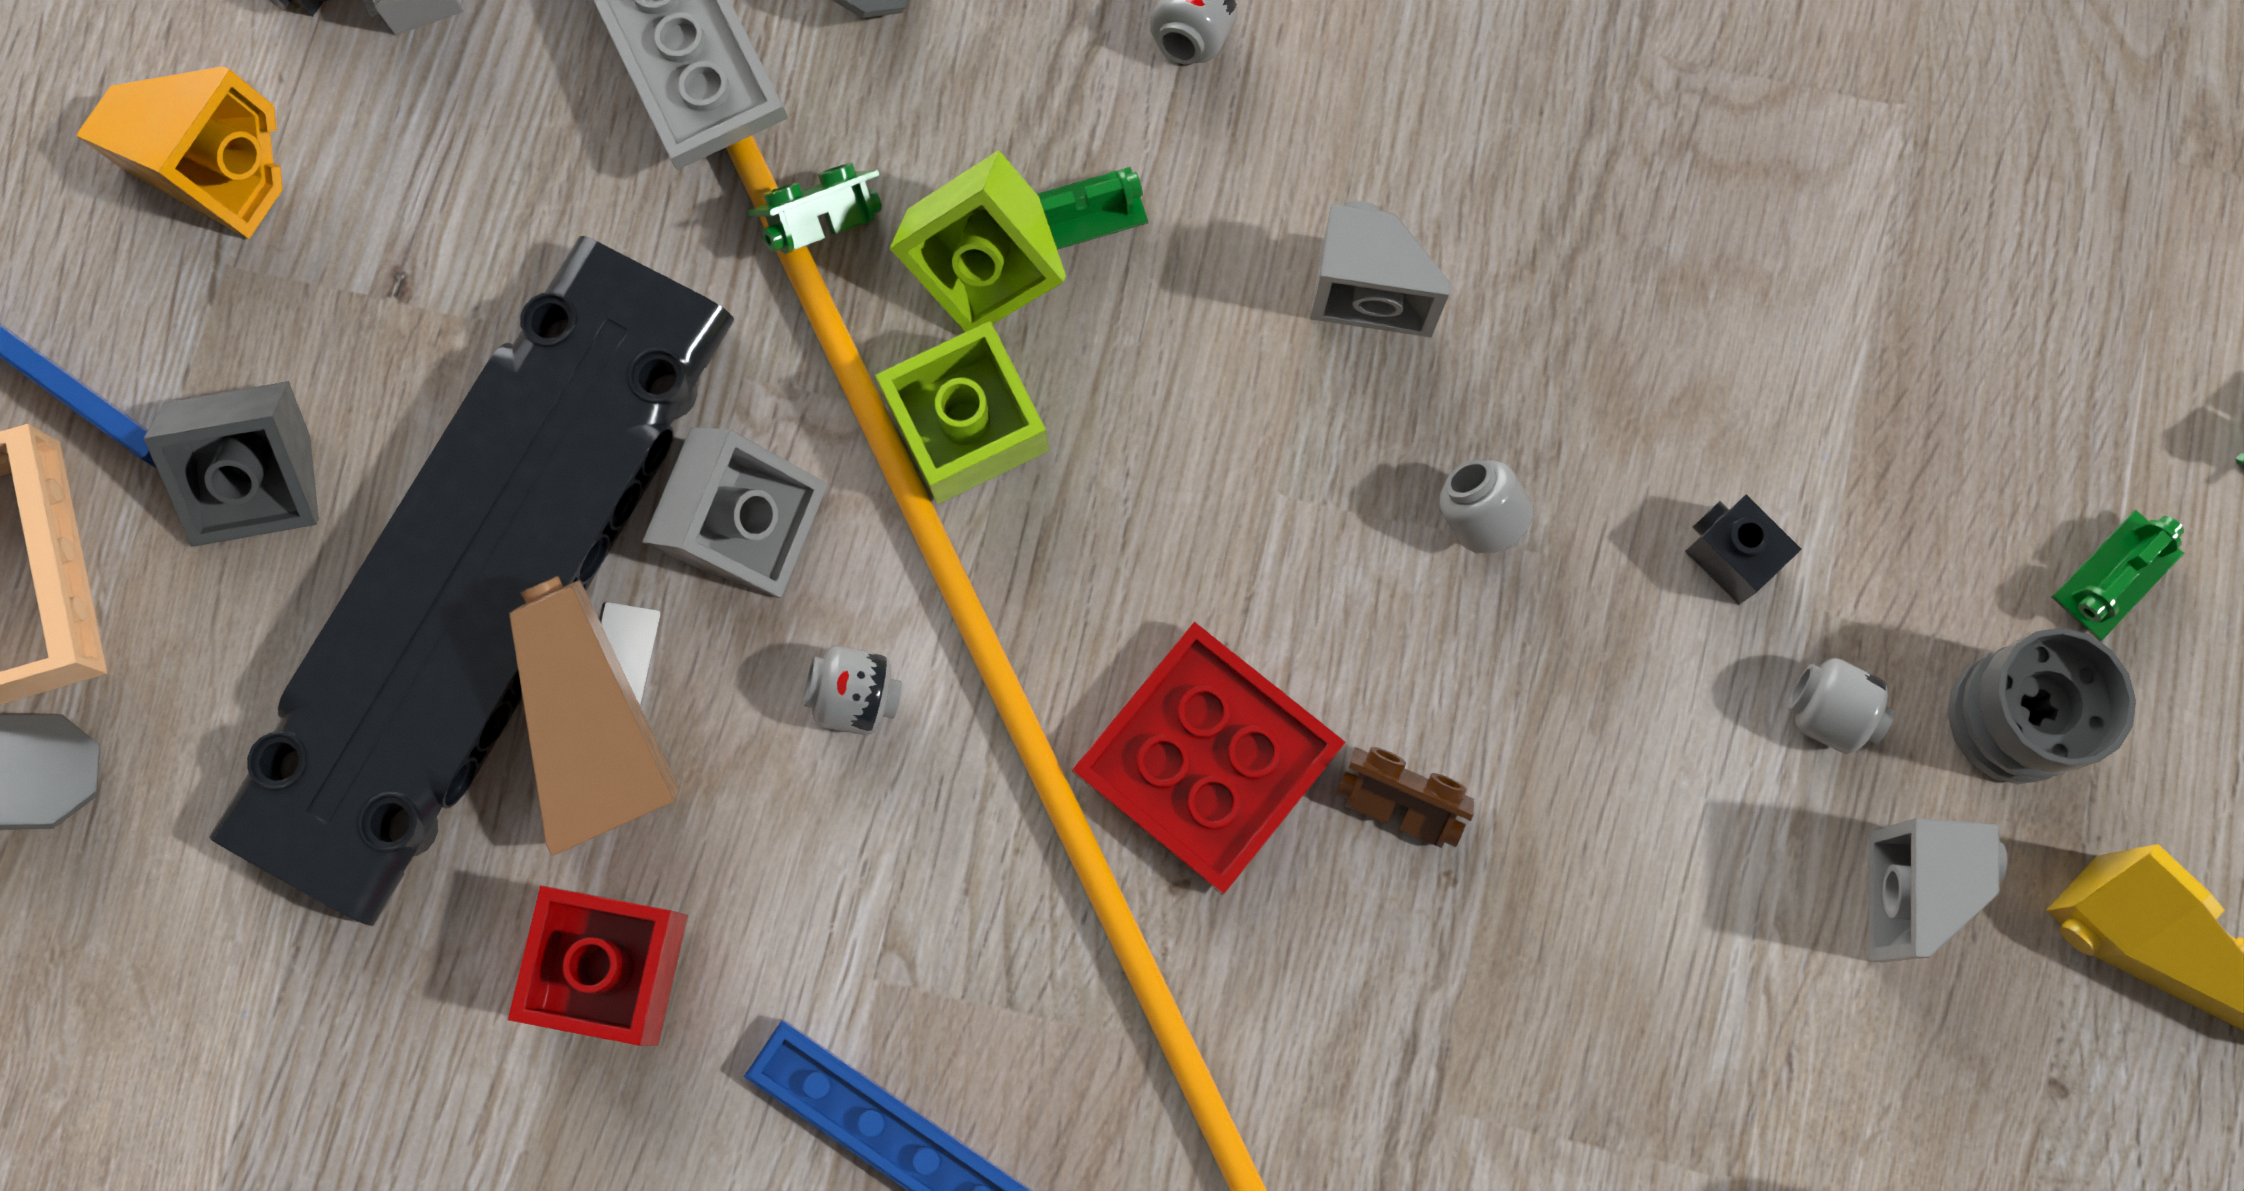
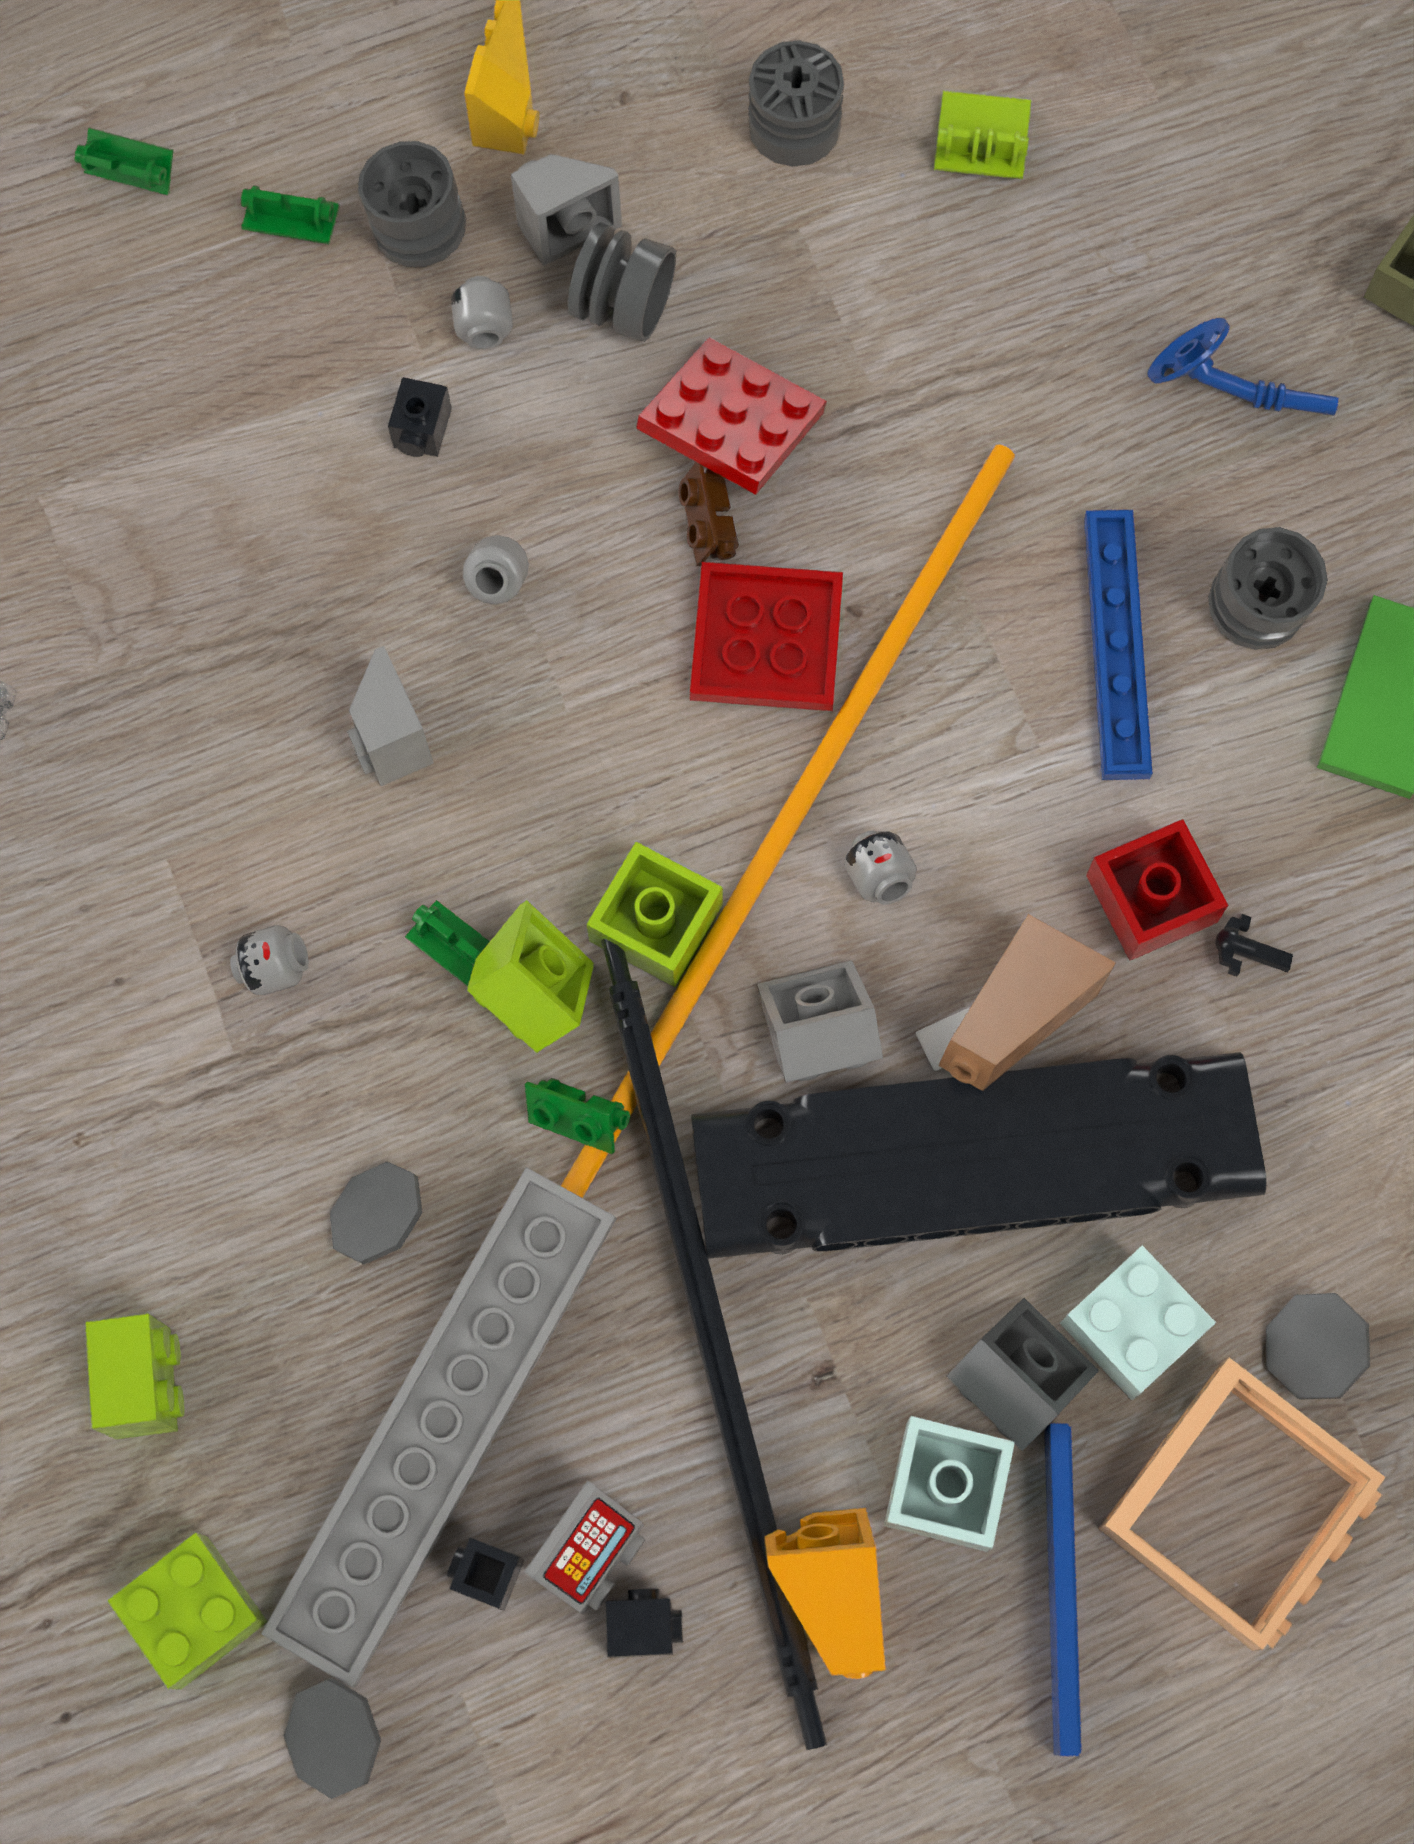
camera: 125 degrees left, 5 degrees down
(186, 309) = (949, 1484): none -> light aqua brick
(190, 605) = (1137, 1323): none -> light aqua brick
(478, 1031) = (1230, 943): none -> black piece
(563, 212) = (712, 1337): none -> black axle
(1512, 903) = (731, 415): none -> plate
(1773, 884) = (616, 280): none -> dark grey wheel

